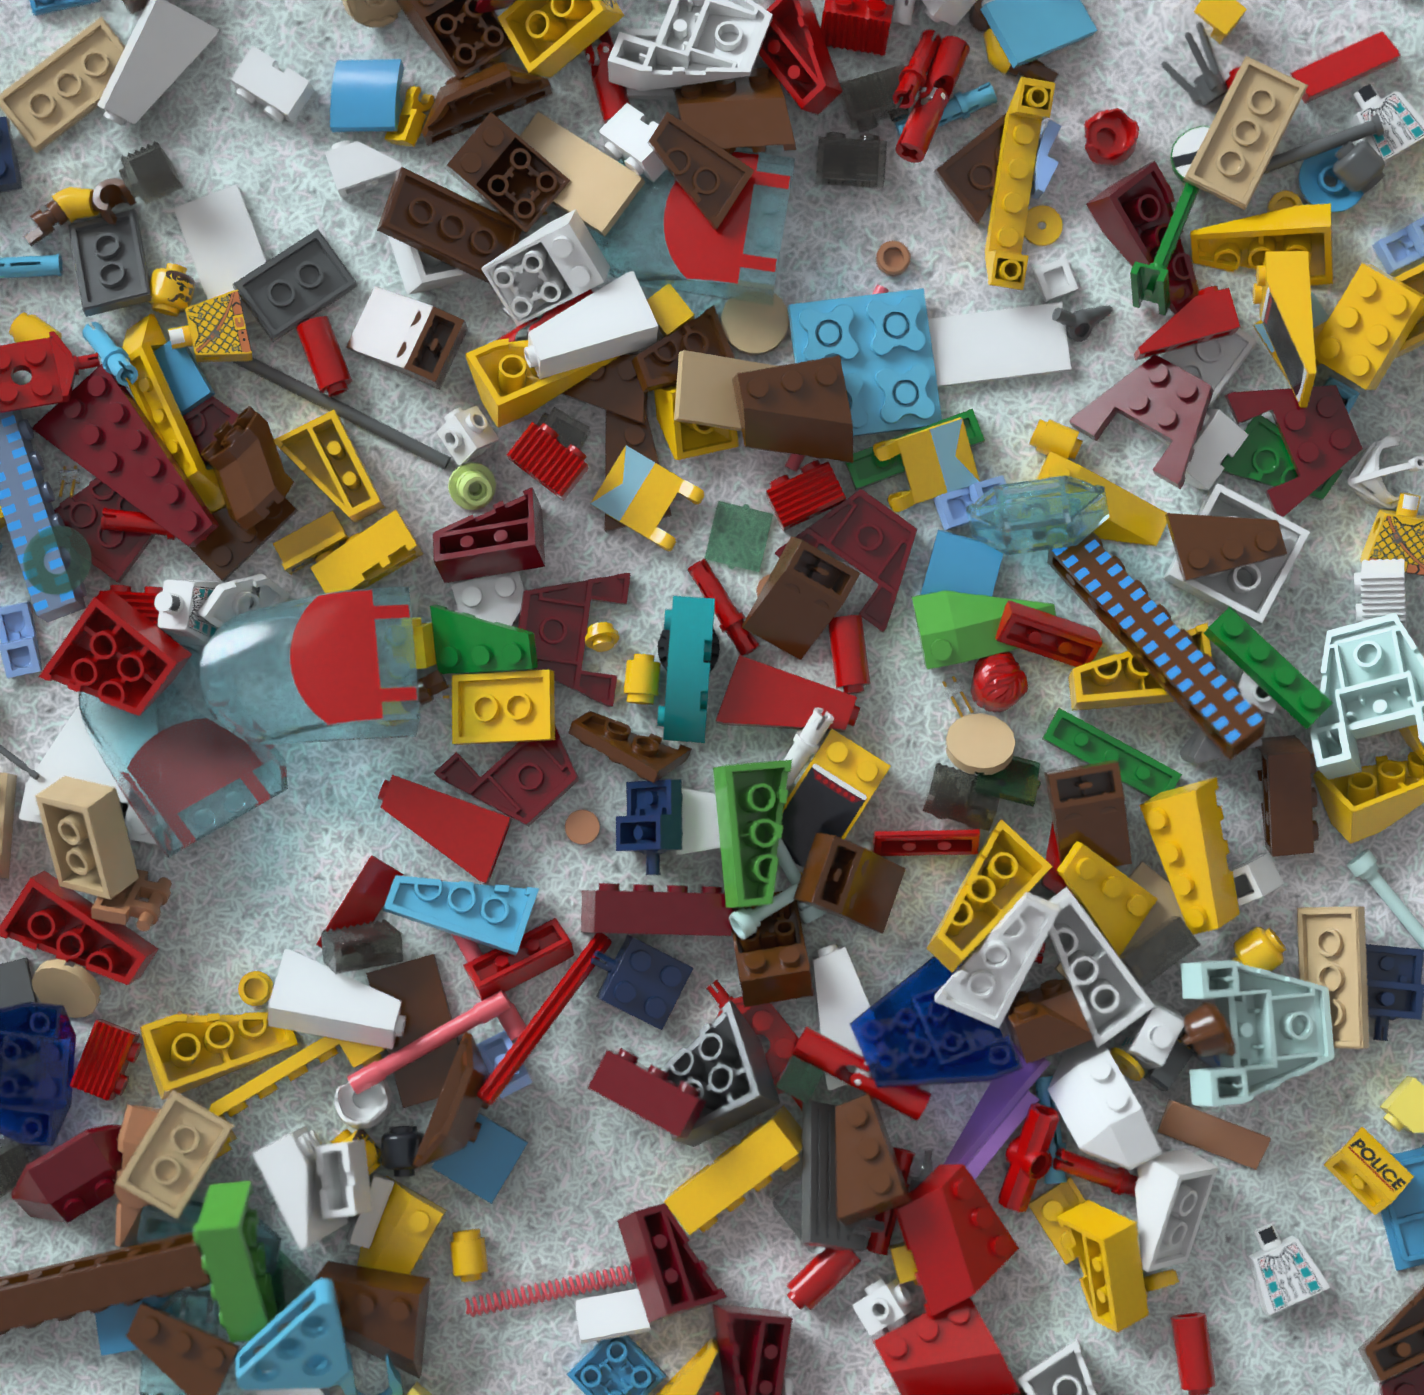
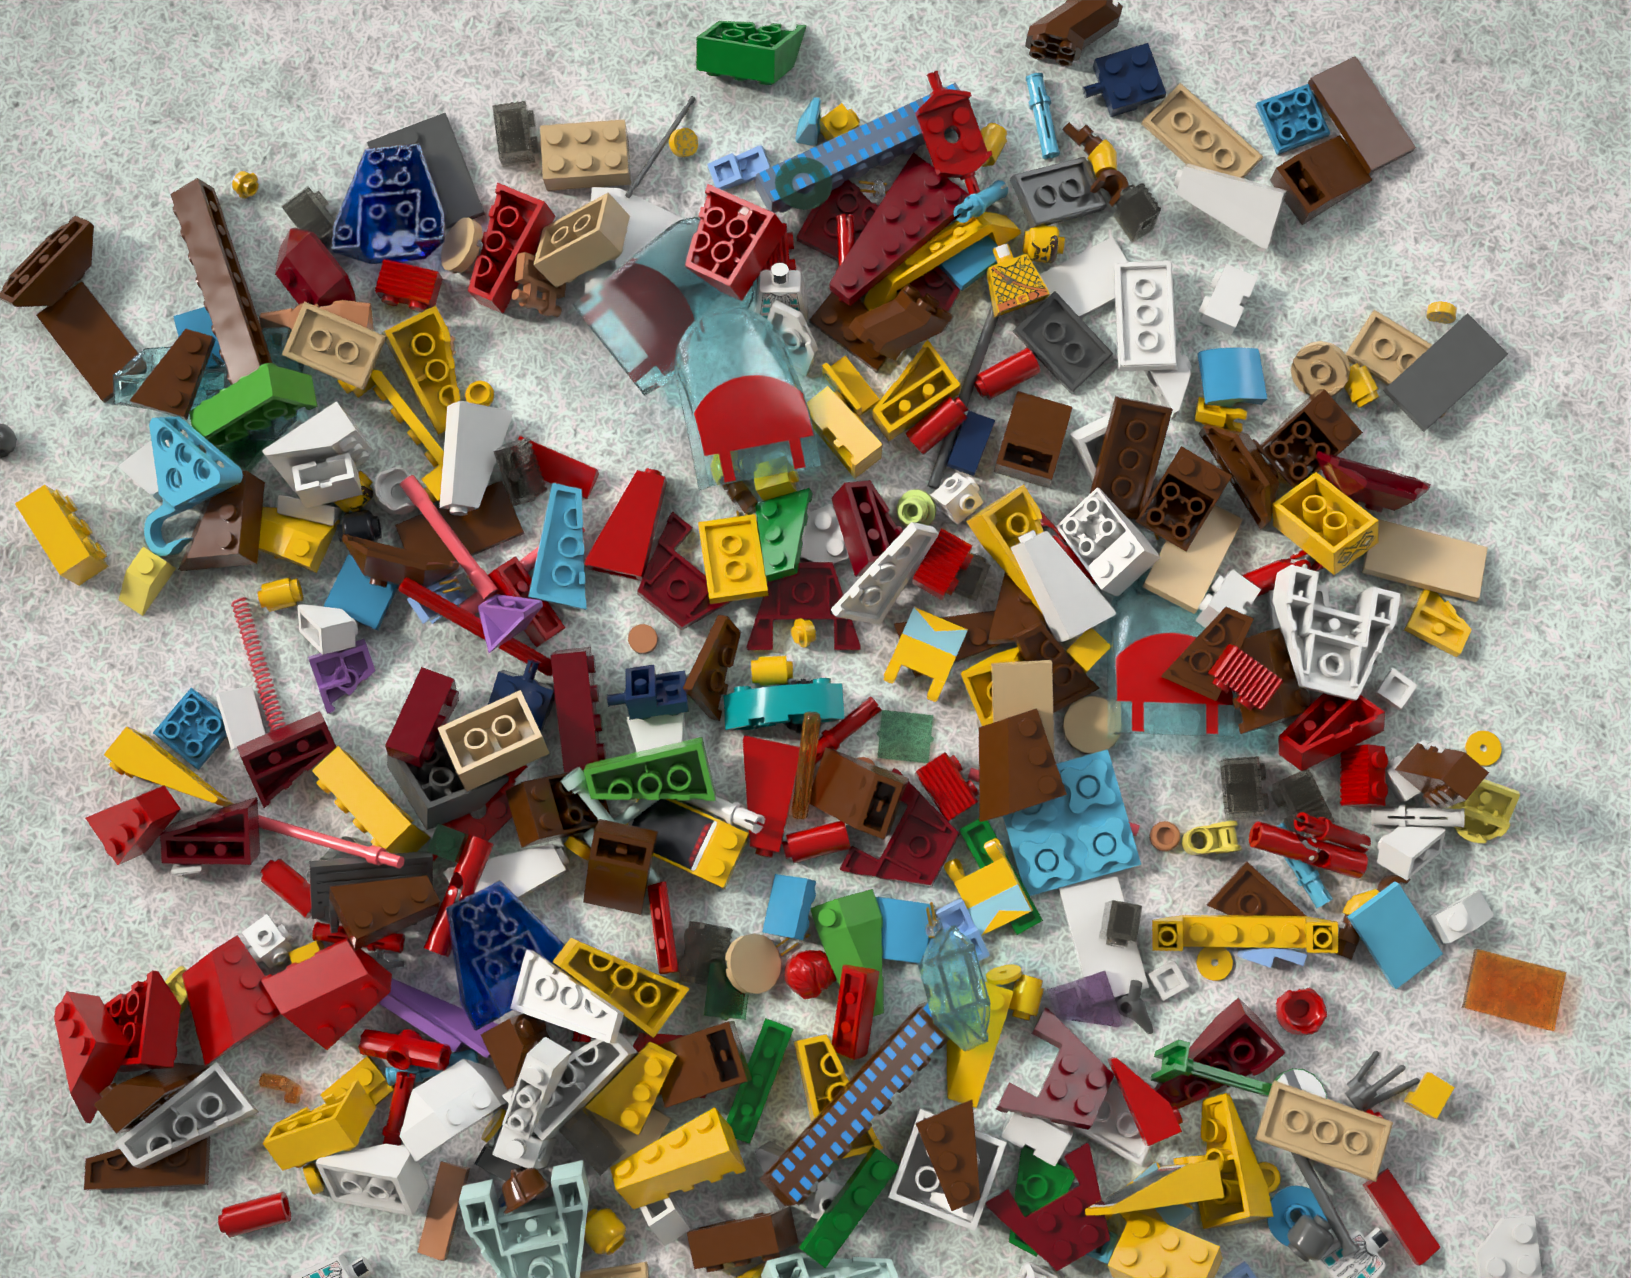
camera: 85 degrees right, 5 degrees down
(279, 183) = (1145, 316): none -> white tile
(374, 445) = (937, 424): none -> red brick
(401, 410) = (971, 443): none -> dark blue slope
(483, 1035) = (461, 581): none -> clear piece
(519, 1201) = (327, 628): none -> white slope
(537, 984) = (506, 617): none -> medium lavender slope
(558, 531) = (886, 578): none -> white wing
(570, 1190) = (341, 672): none -> medium lavender slope
(687, 1010) = (493, 740): none -> tan brick
(734, 132) = (1245, 678): none -> red brick
(761, 651) = (806, 765): none -> clear orange axle
(803, 1167) = (372, 854): none -> coral bar
(819, 929) = (578, 847): none -> yellow tile
(905, 200) = (1217, 839): none -> light yellow piece
(921, 693) = (789, 906): none -> dark azure tile
(960, 531) = (934, 923): none -> piece
(990, 319) = (1120, 923): none -> clear smoke brick
(1027, 461) = (1004, 974): none -> yellow wheel
(1048, 1306) = (282, 1083): none -> clear orange arm
(1067, 374) = (1086, 1001): none -> clear purple slope
(1095, 1004) = (535, 1086): none -> white slope

